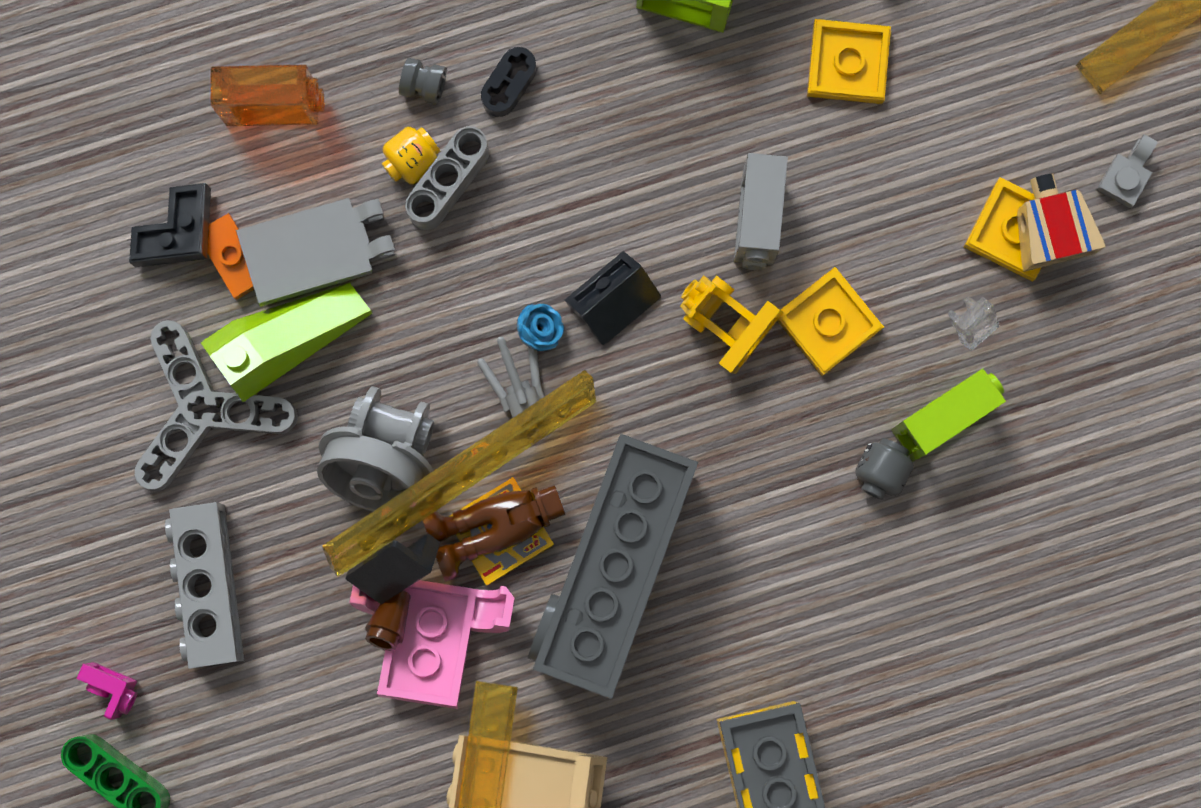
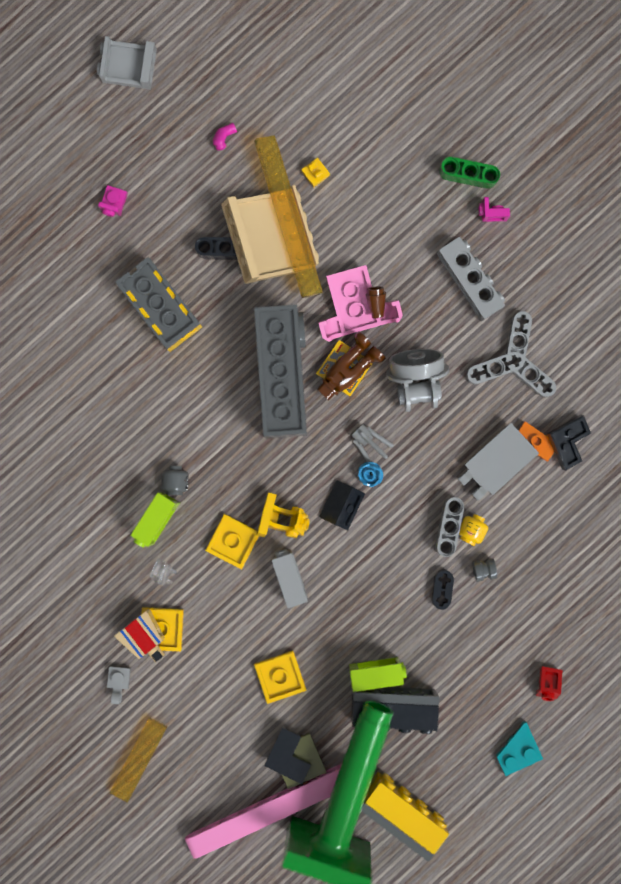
camera: 150 degrees right, 5 degrees up
(266, 95) = (556, 525): clear orange window -> none
(274, 341) = (495, 409): wedge -> none
(394, 568) = (384, 324): black panel -> none
(459, 474) = (374, 384): clear yellow tile -> none

